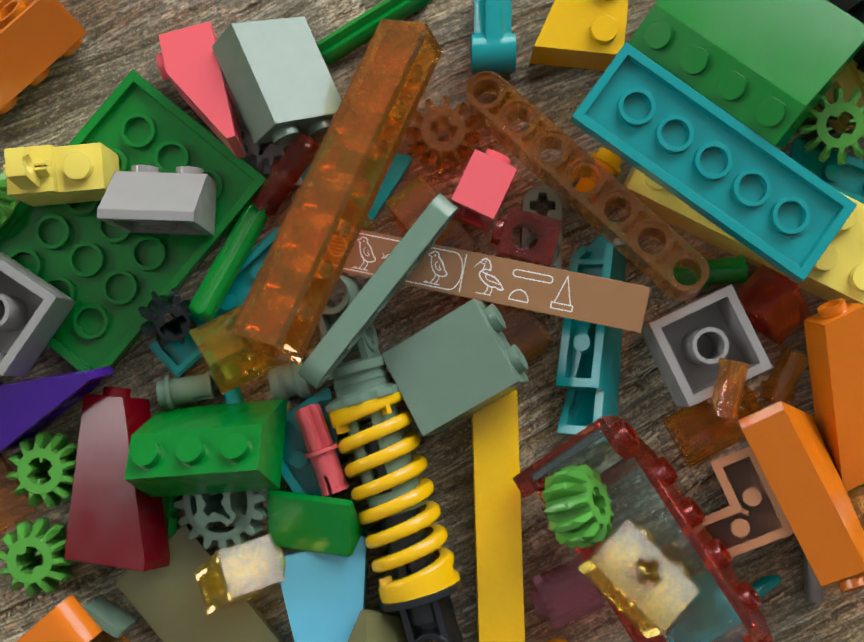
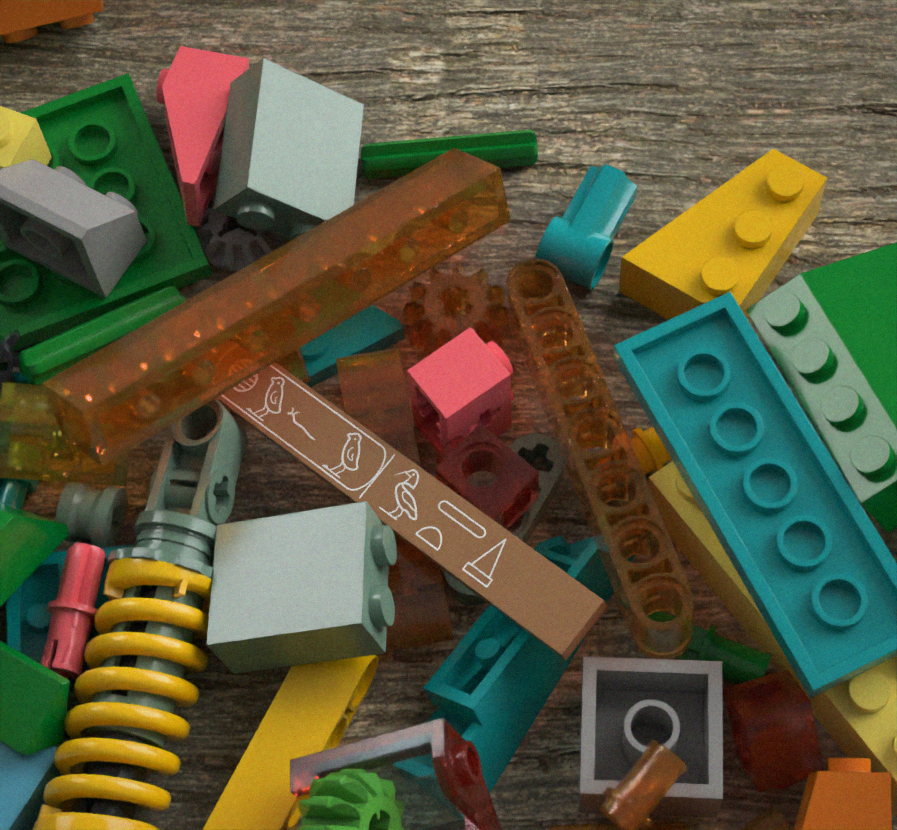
camera: 30 degrees right, 20 degrees down
(286, 174) = (233, 259): clear red axle -> none
(378, 291) = (253, 436): sand green beam -> none

